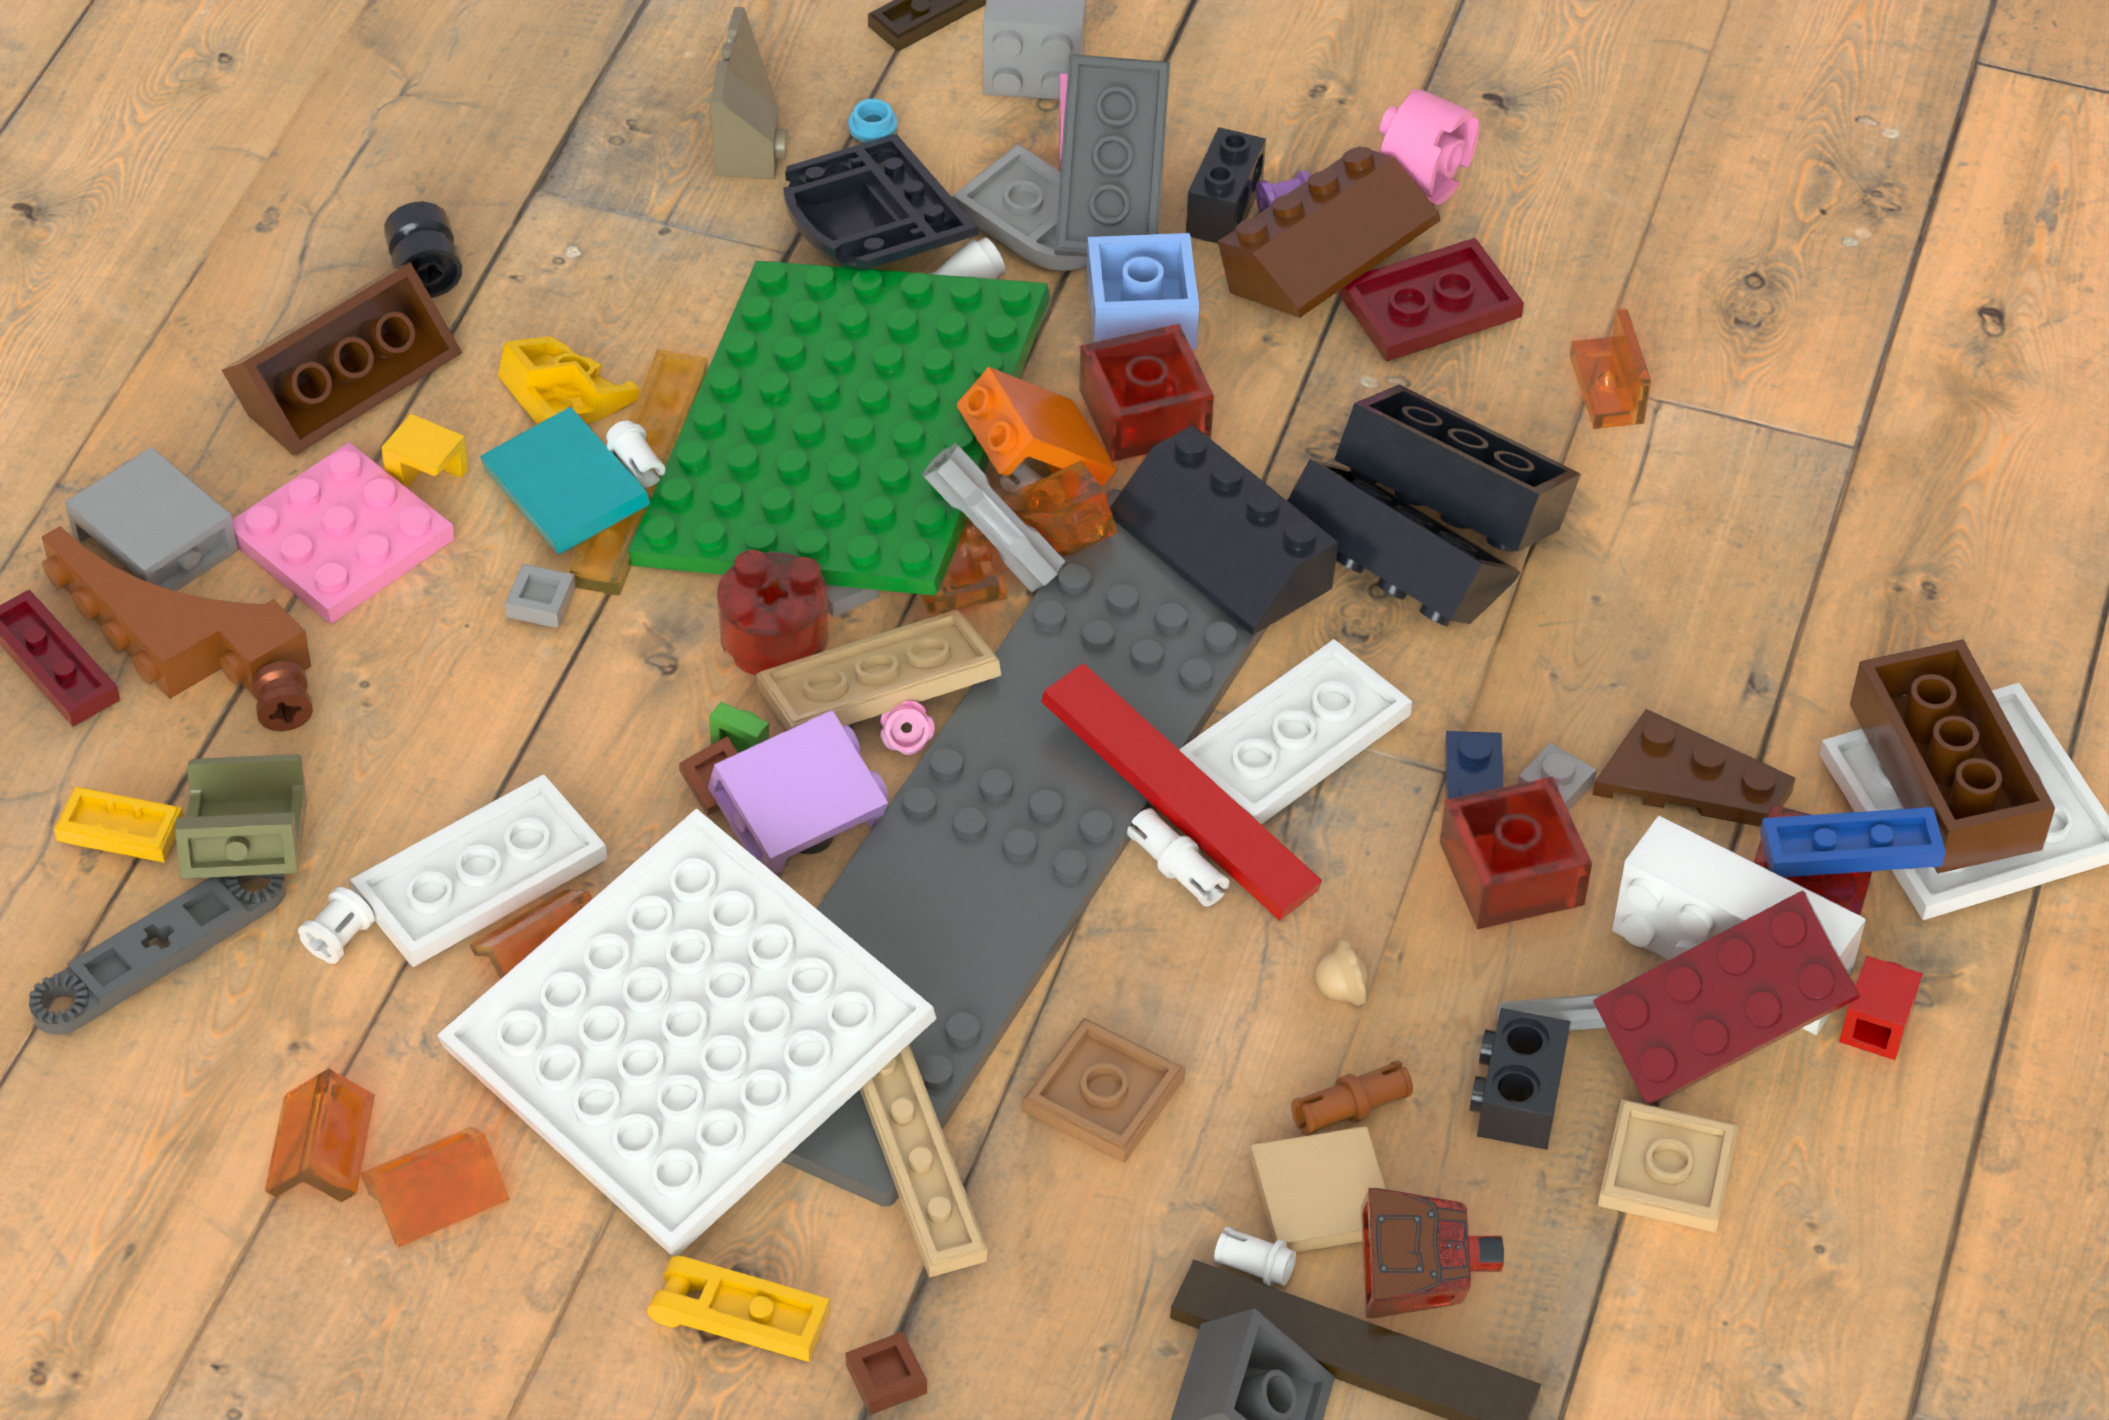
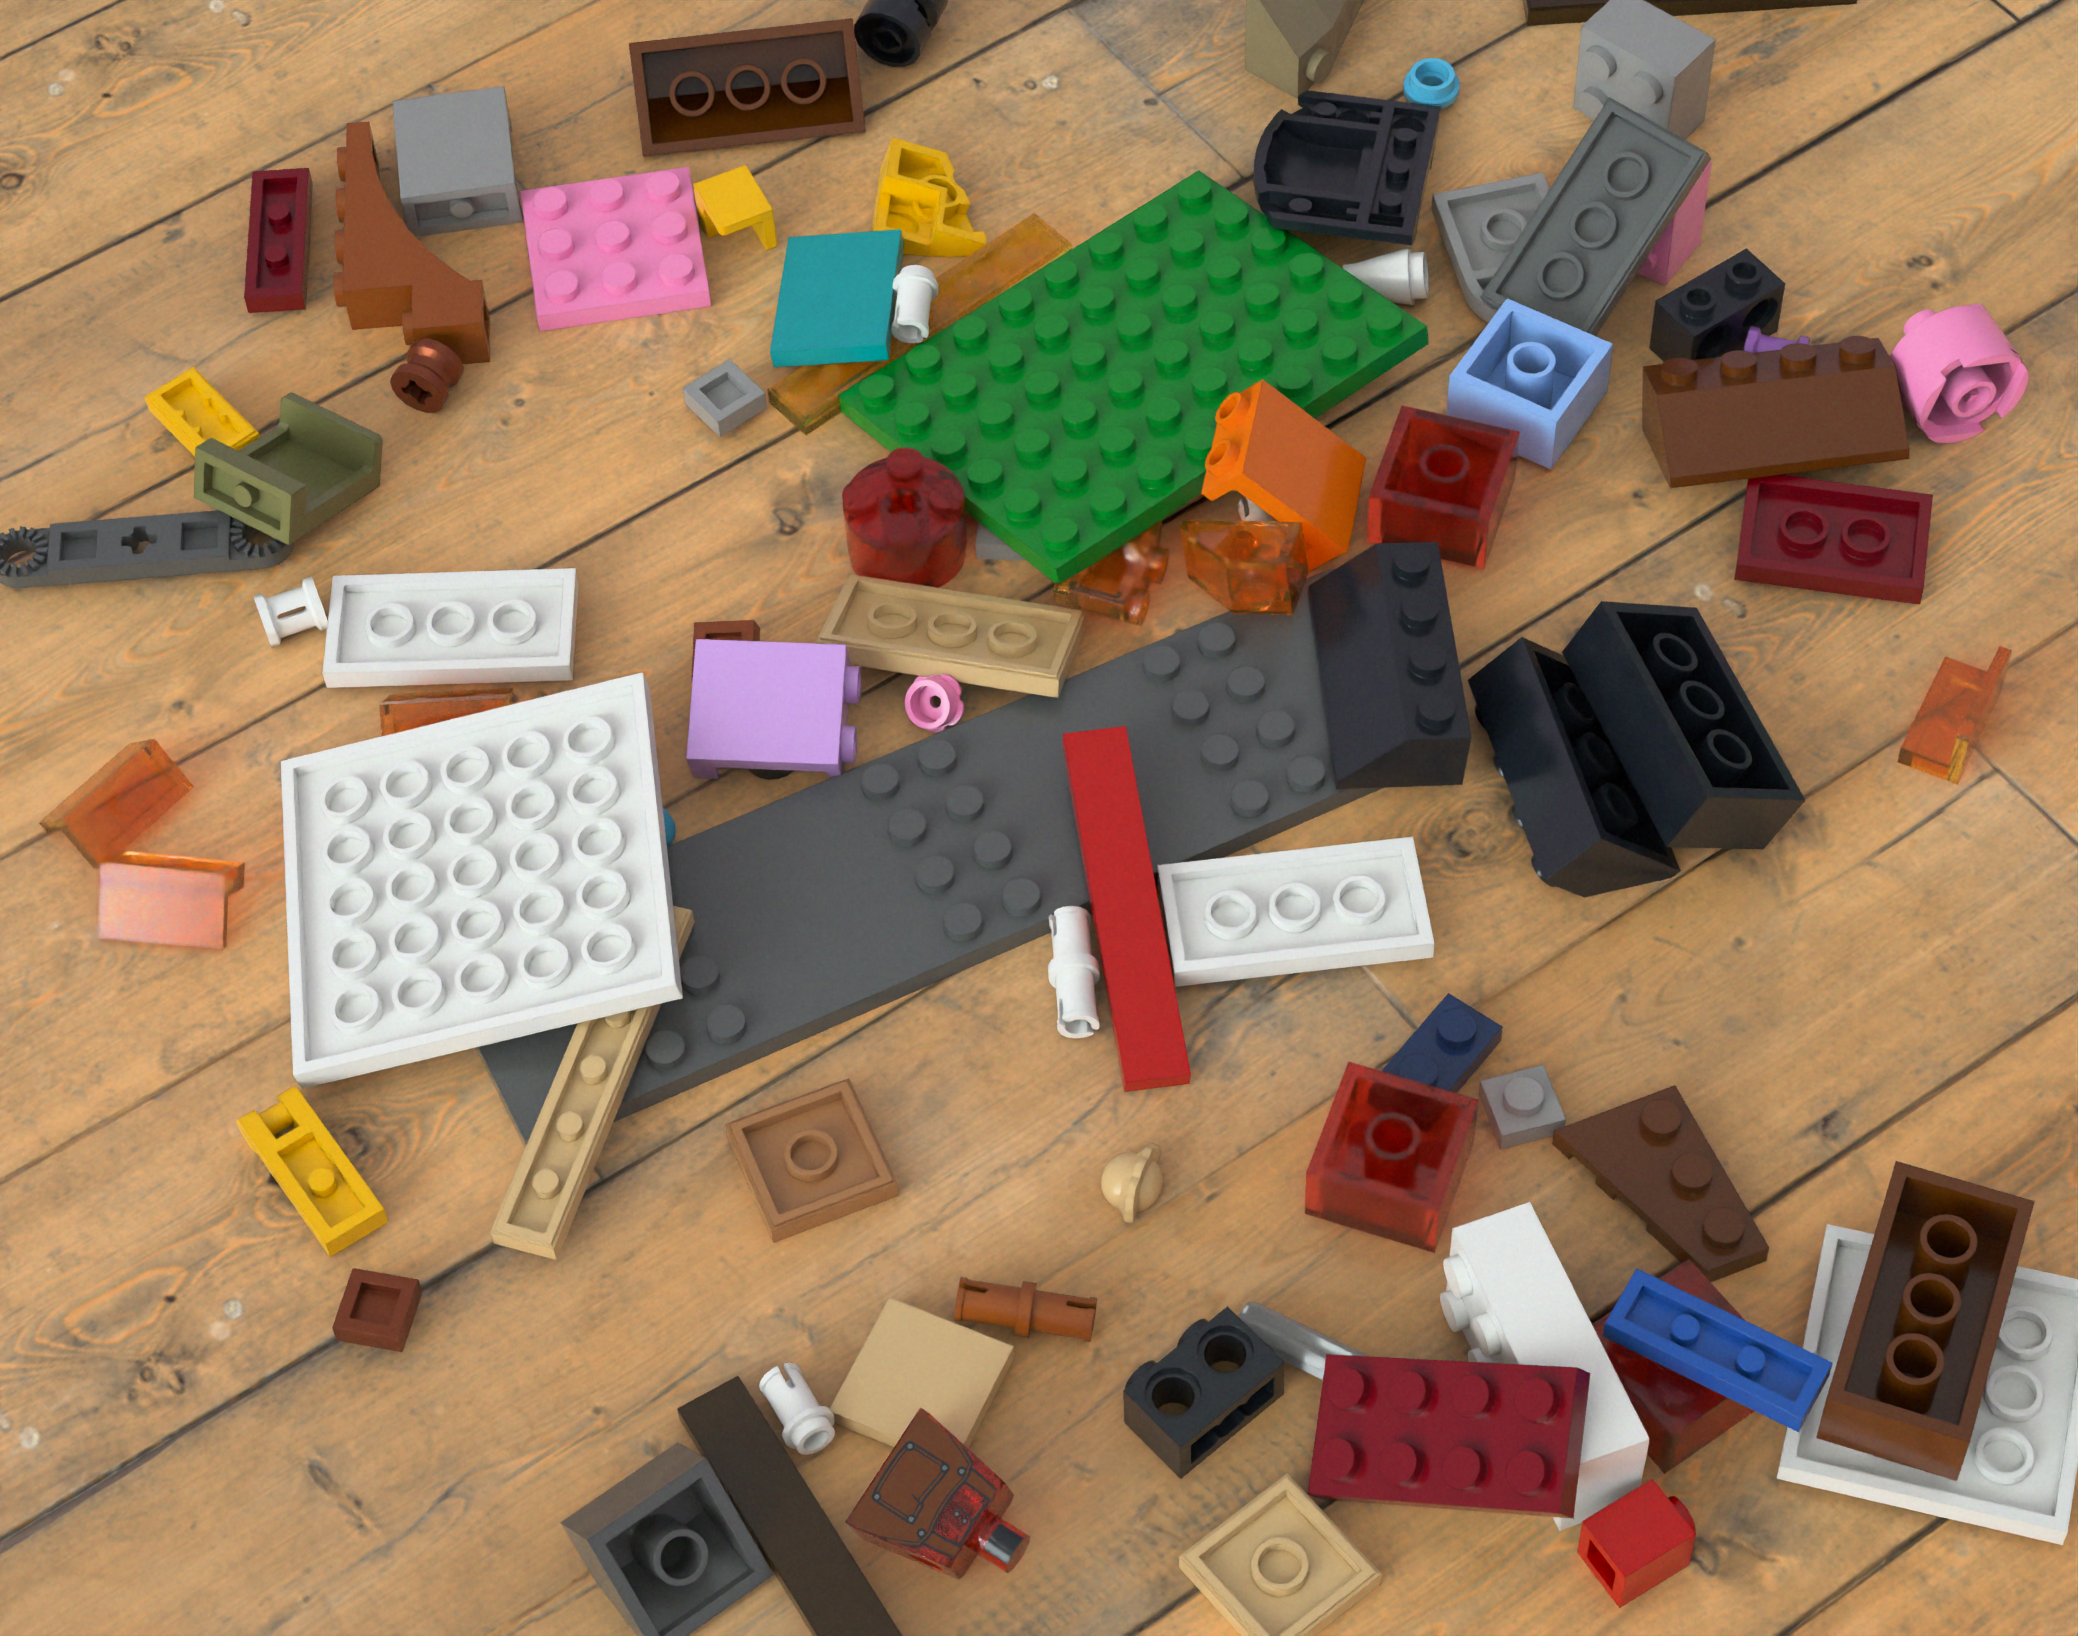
camera: 40 degrees right, 5 degrees up
(740, 726) = (775, 619): bright green plate -> none
(969, 491) = (1183, 577): light grey axle -> none

